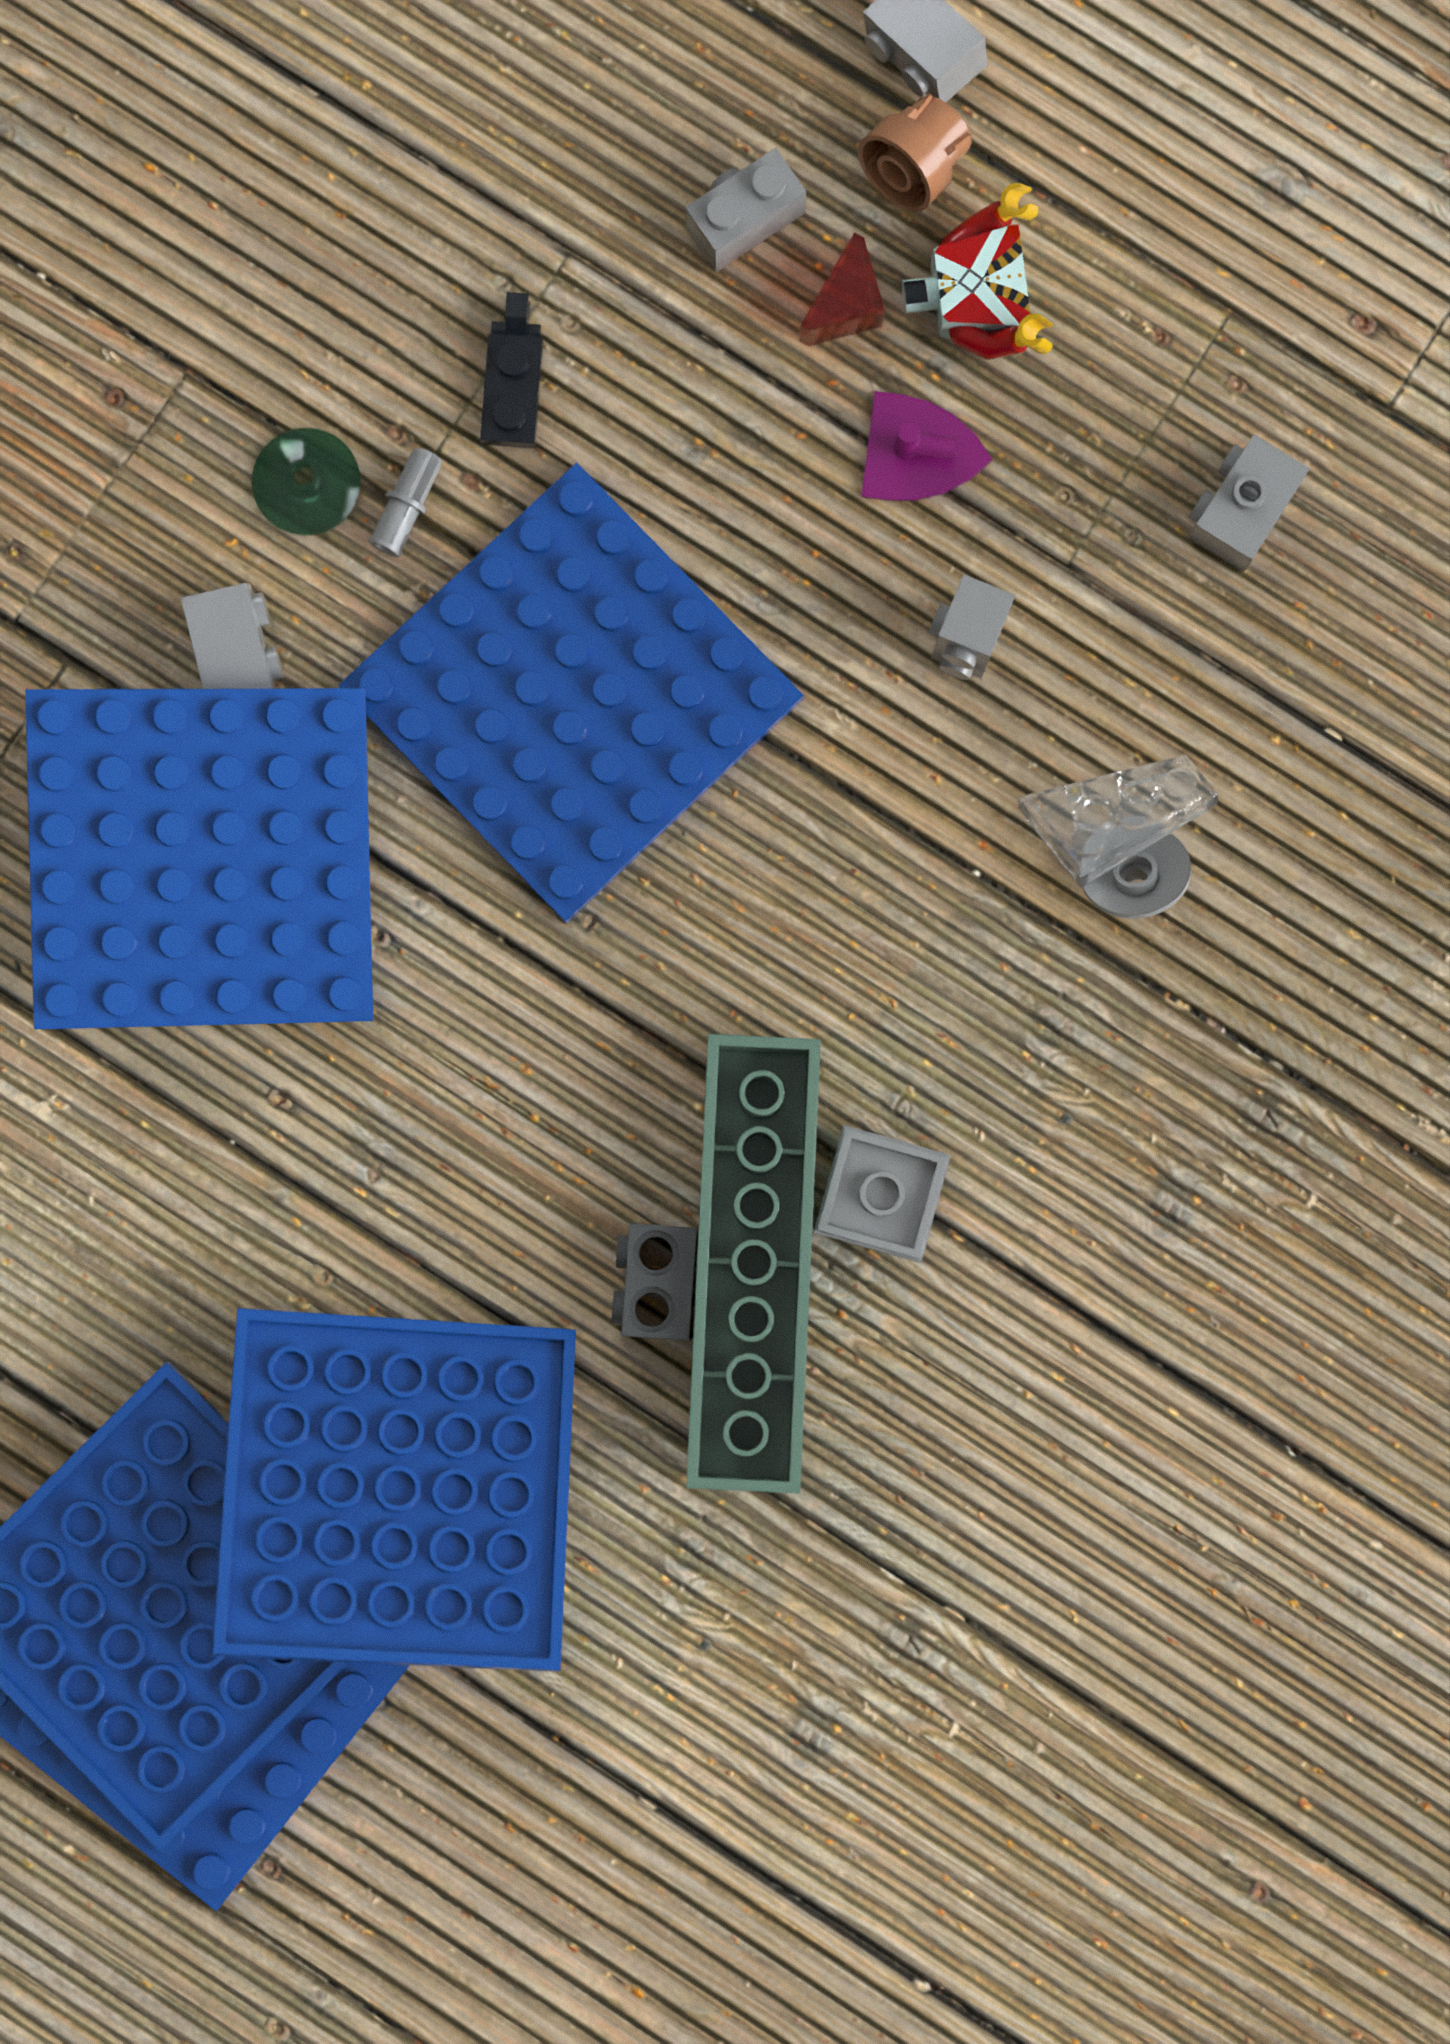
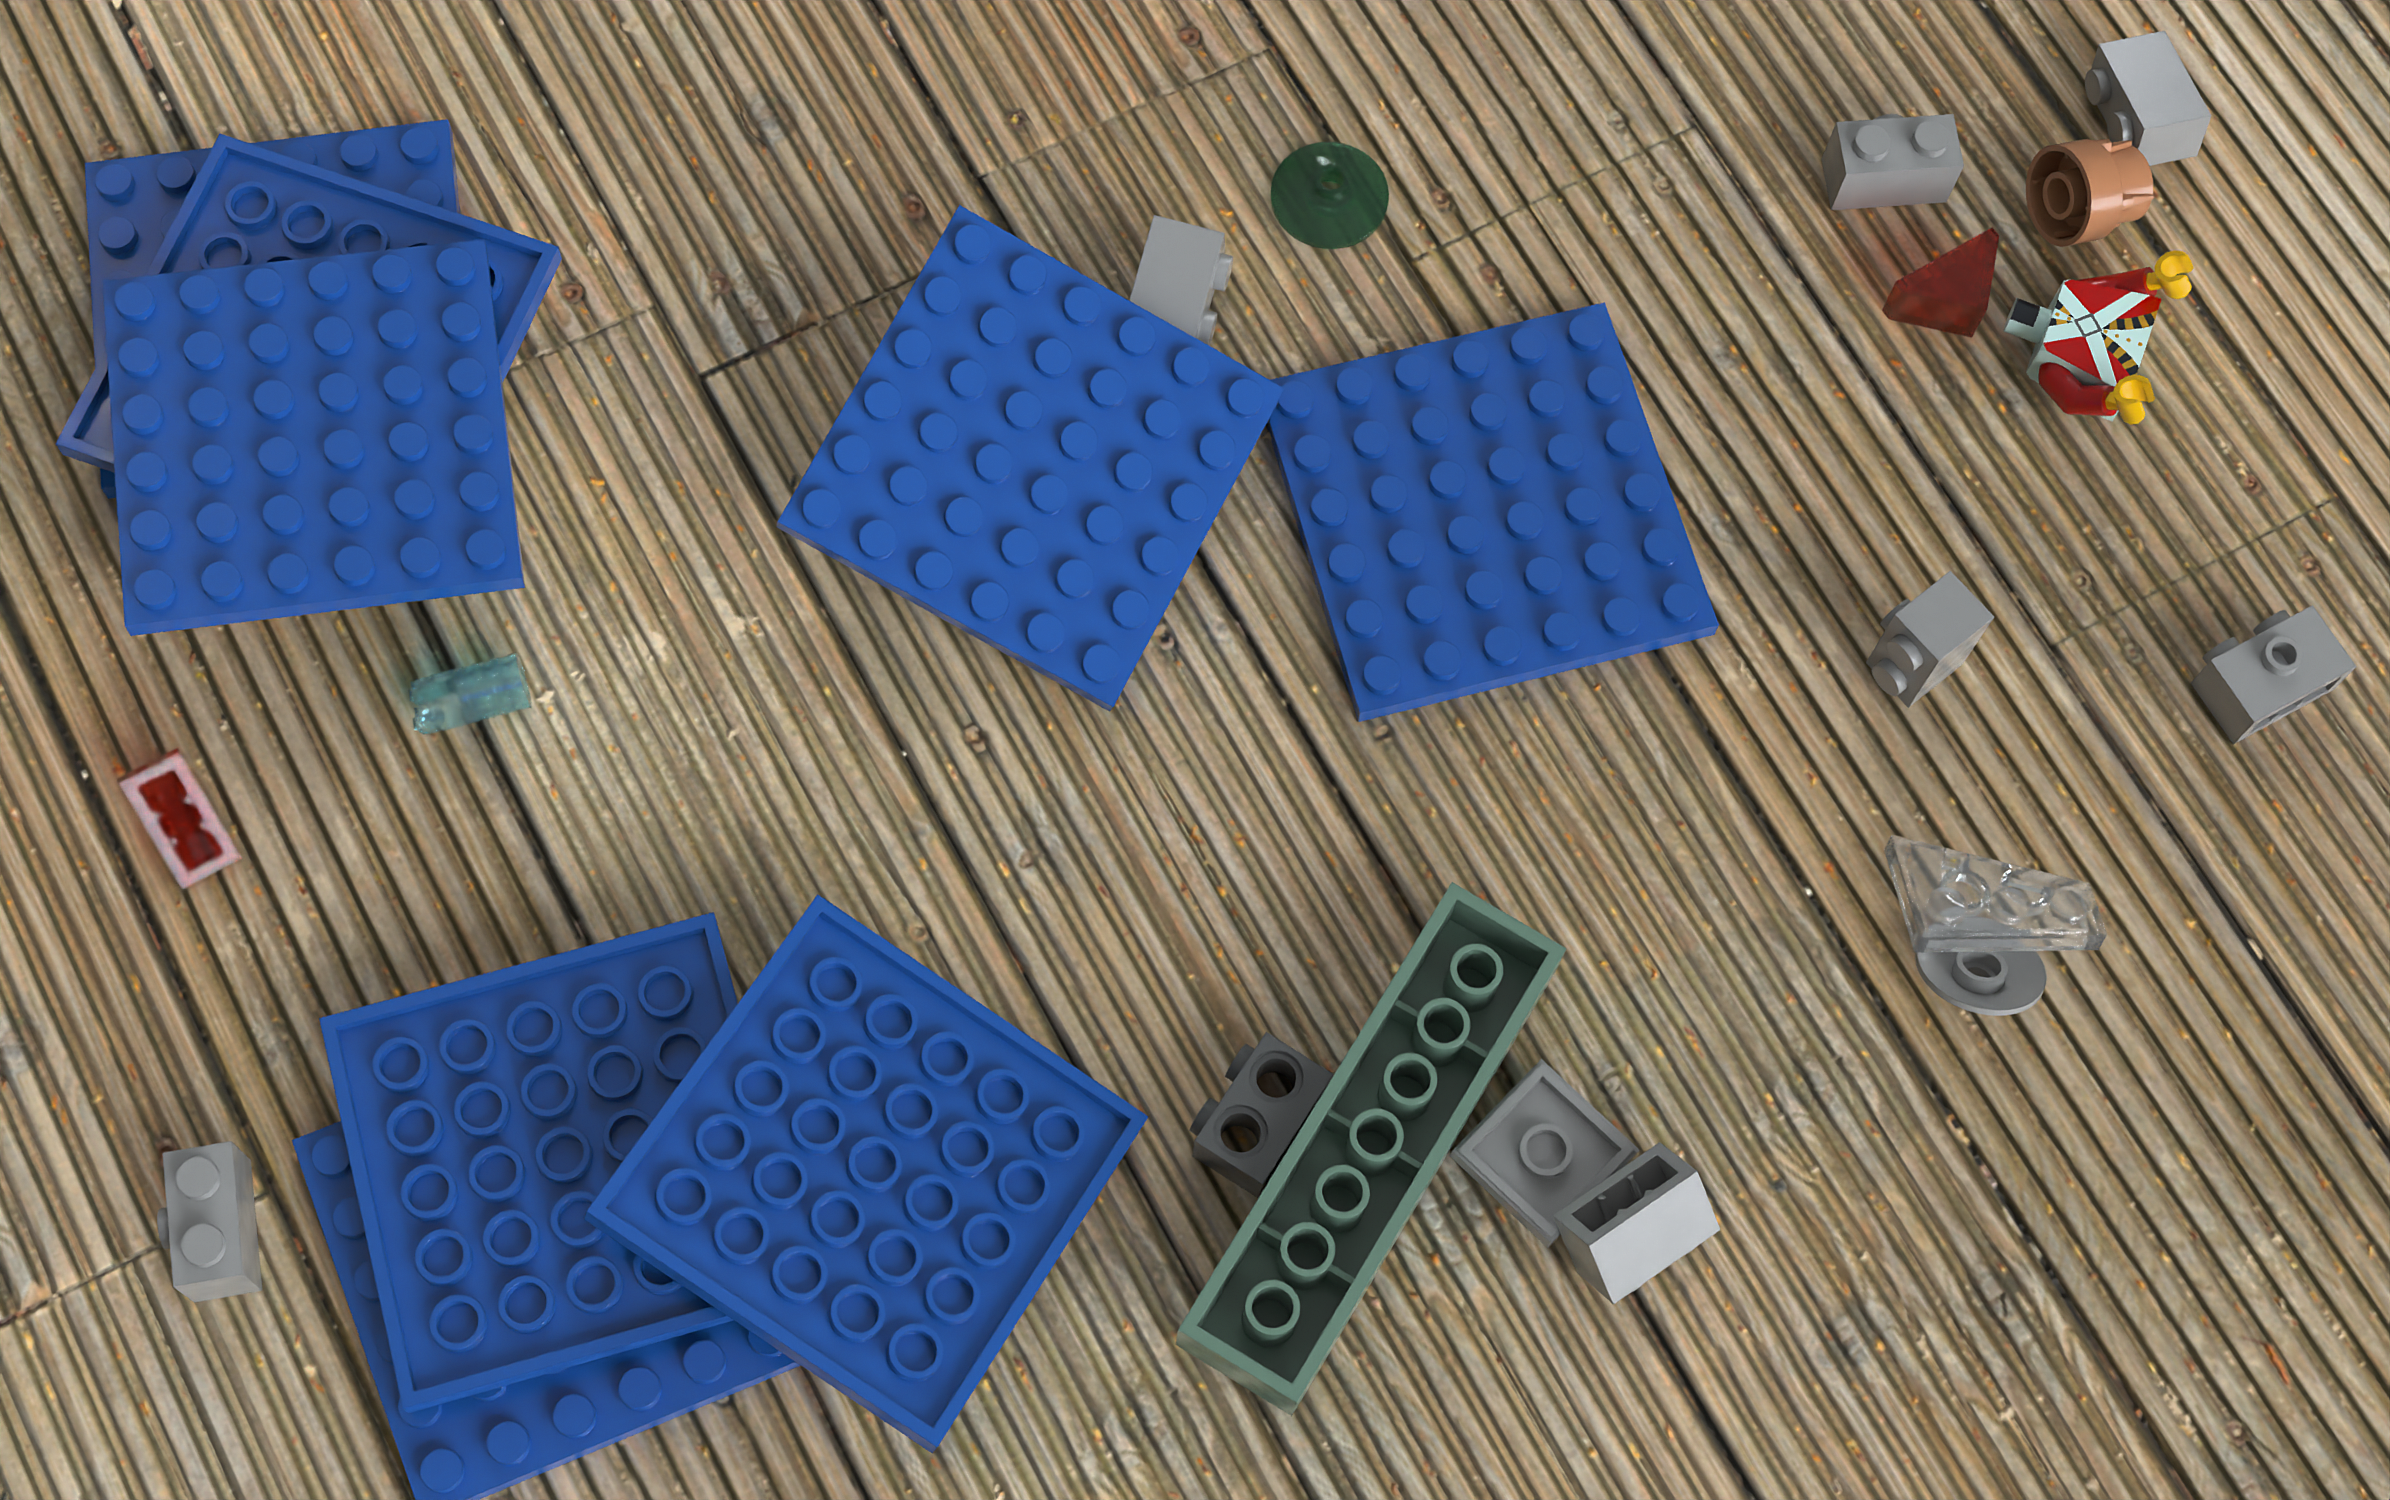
camera: 25 degrees right, 15 degrees down
(406, 502) = (1416, 256): light grey axle -> none
(512, 378) = (1582, 201): black hinge -> none
(917, 450) = (1951, 465): magenta shield -> none
(976, 1214) = (1637, 1222): none -> brick

